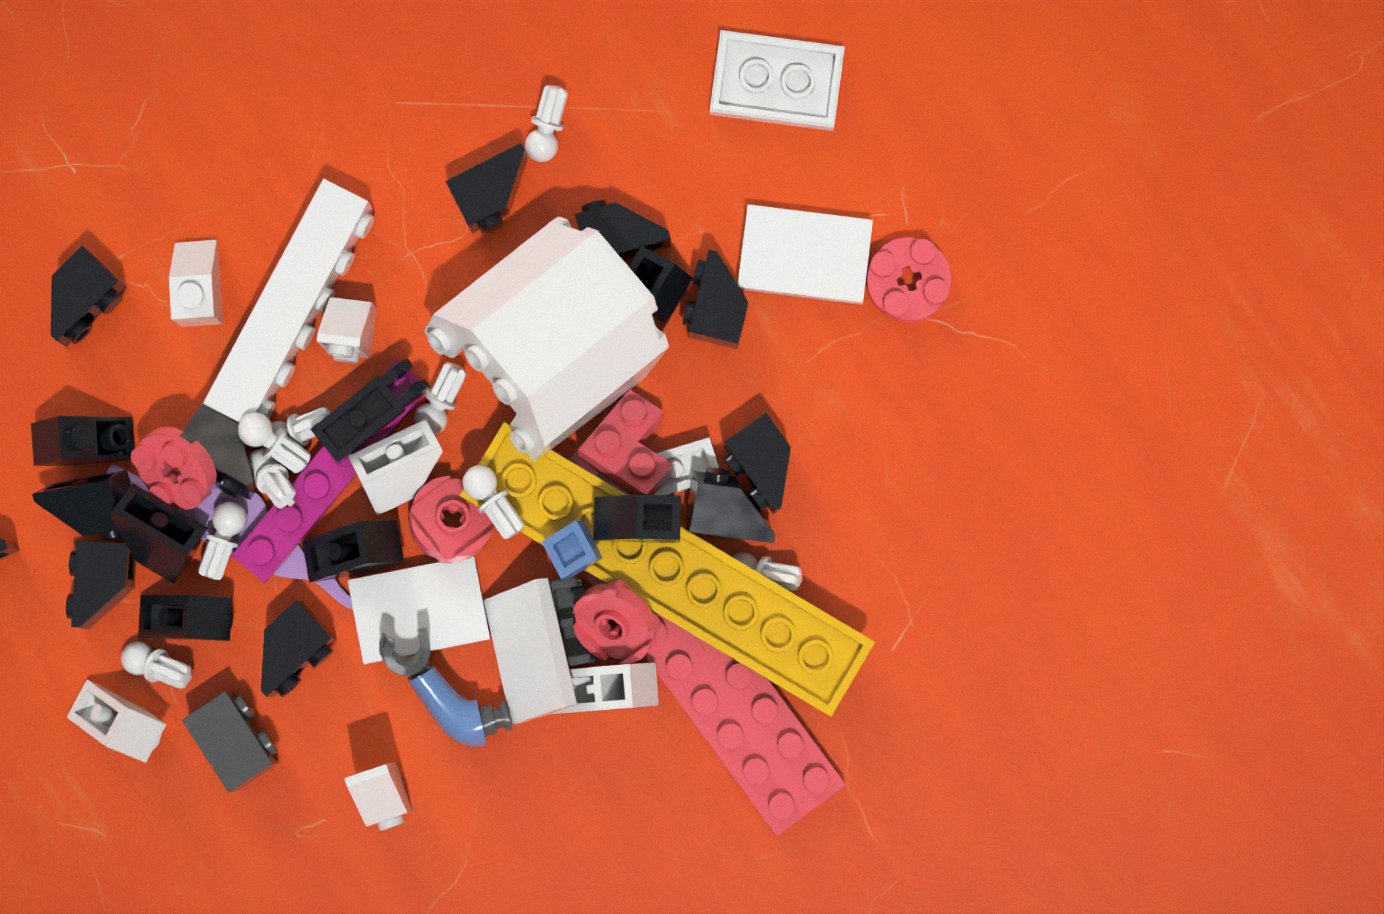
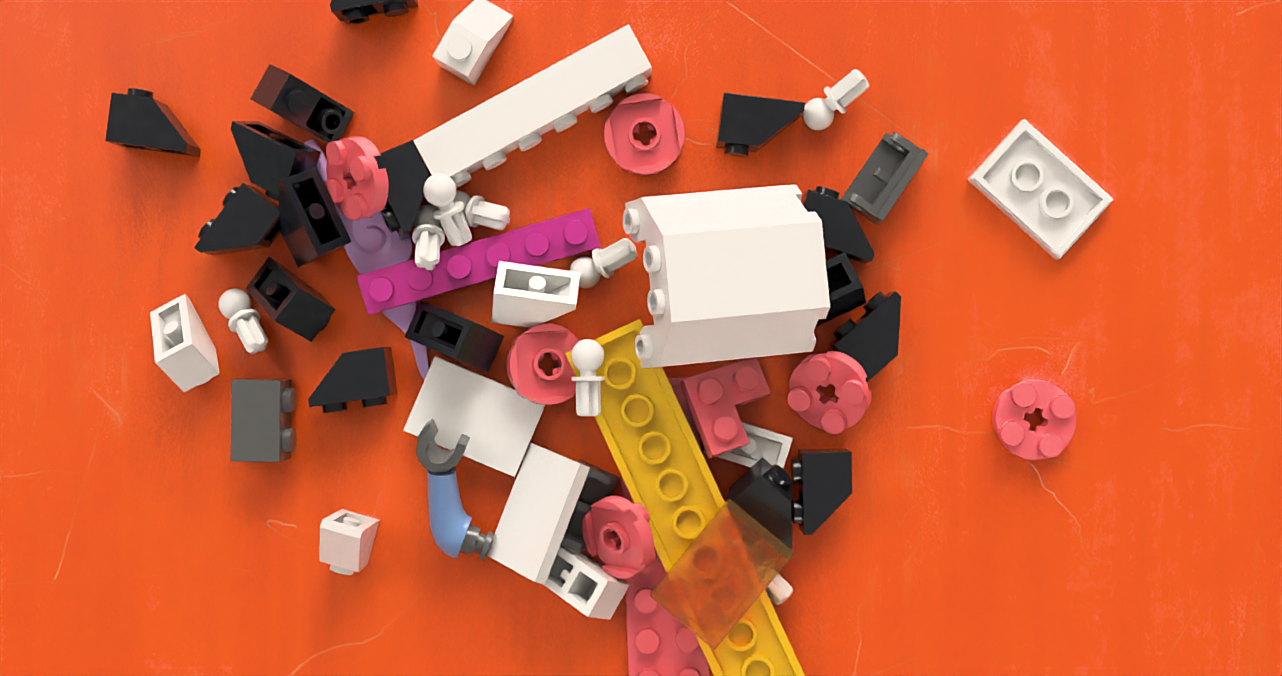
camera: 35 degrees right, 5 degrees up
(228, 520) = (372, 247): white axle -> none
(347, 329) = (566, 158): white slope -> none
(366, 413) = (535, 236): black hinge -> none
(401, 240) = (625, 122): none -> coral plate
(572, 549) = (624, 460): medium blue plate -> none
(634, 160) = (884, 177): none -> dark grey hinge
(637, 518) = (693, 473): black slope -> none
(710, 397) = (818, 409): none -> coral plate
(723, 589) = (721, 573): none -> clear orange plate
(805, 254) = (966, 343): white tile -> none

